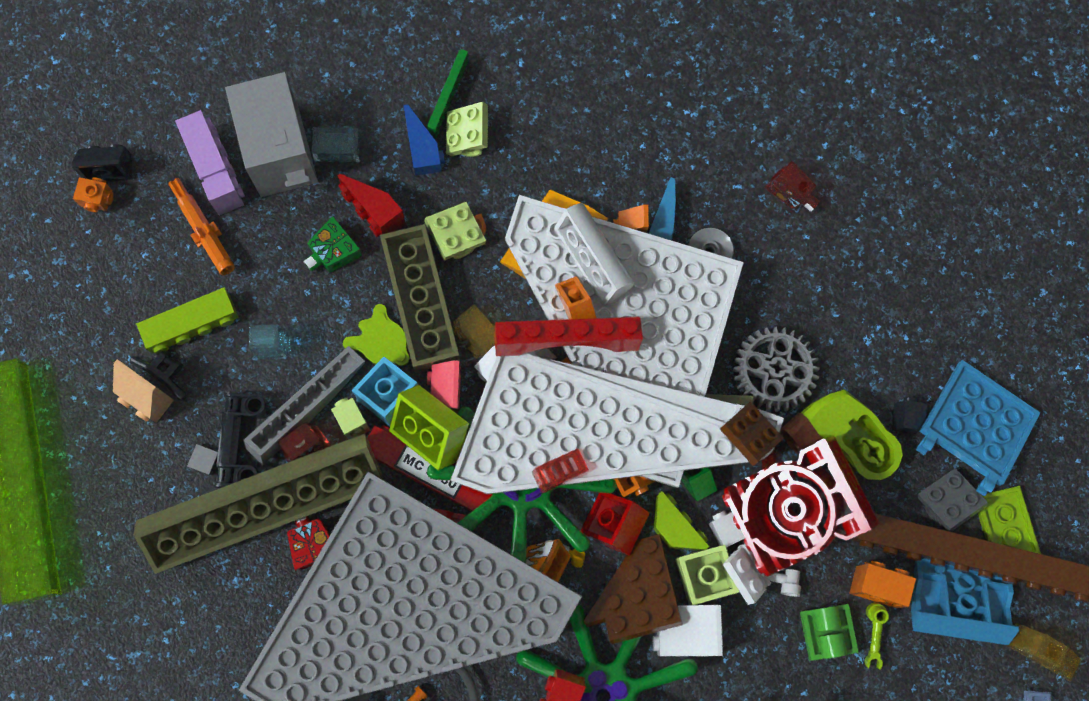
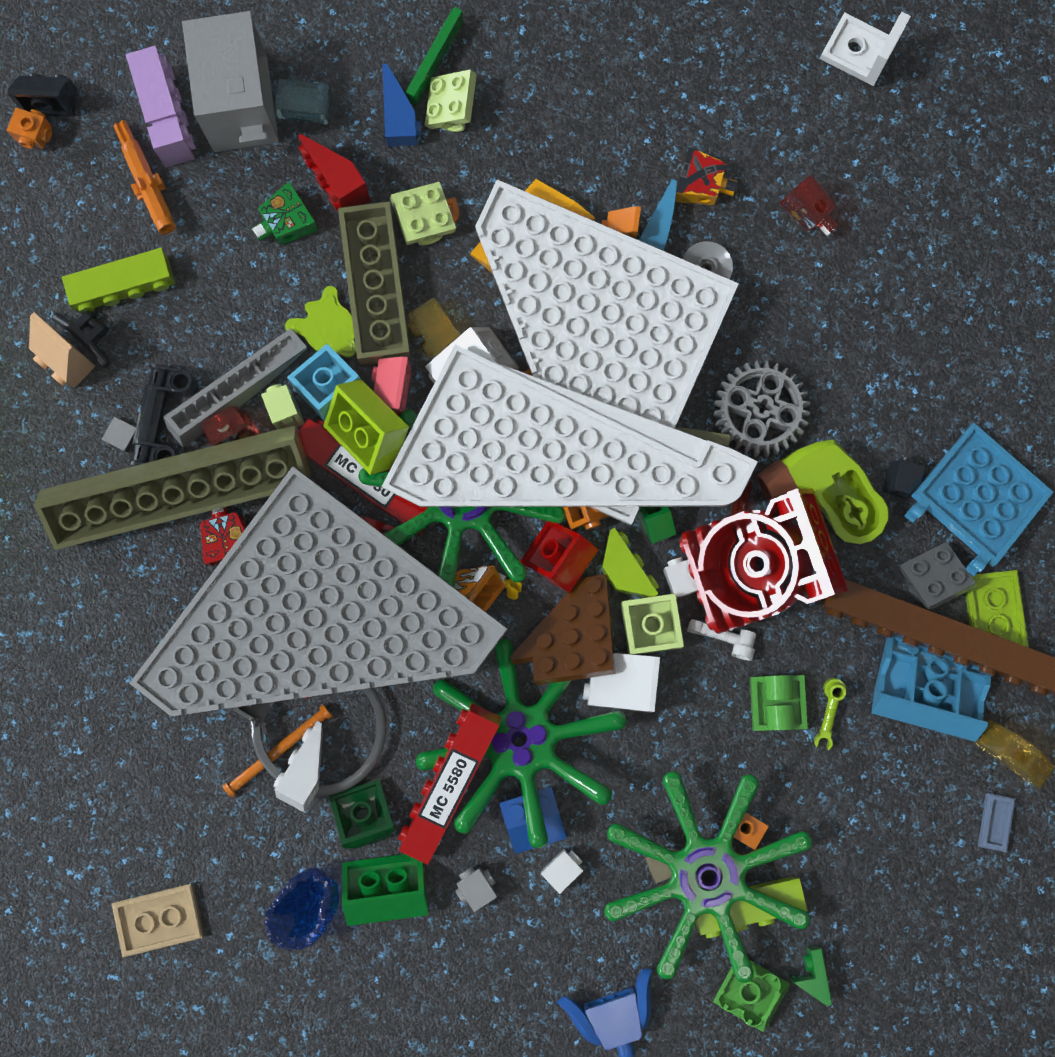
camera: 15 degrees right, 5 degrees up
(268, 341) = (203, 313): clear light blue brick -> none
(528, 336) = (575, 345): red arch -> none
(540, 479) = (495, 502): clear red slope -> none
(575, 299) = (544, 308): orange slope -> none
(593, 254) = (570, 254): white brick -> none
(696, 174) = (702, 179): none -> torso
(745, 575) = (693, 630): white plate -> none
(751, 433) = (717, 474): reddish brown plate -> none
(829, 47) = (874, 45): none -> white bracket
(882, 585) = (844, 659): orange brick -> none

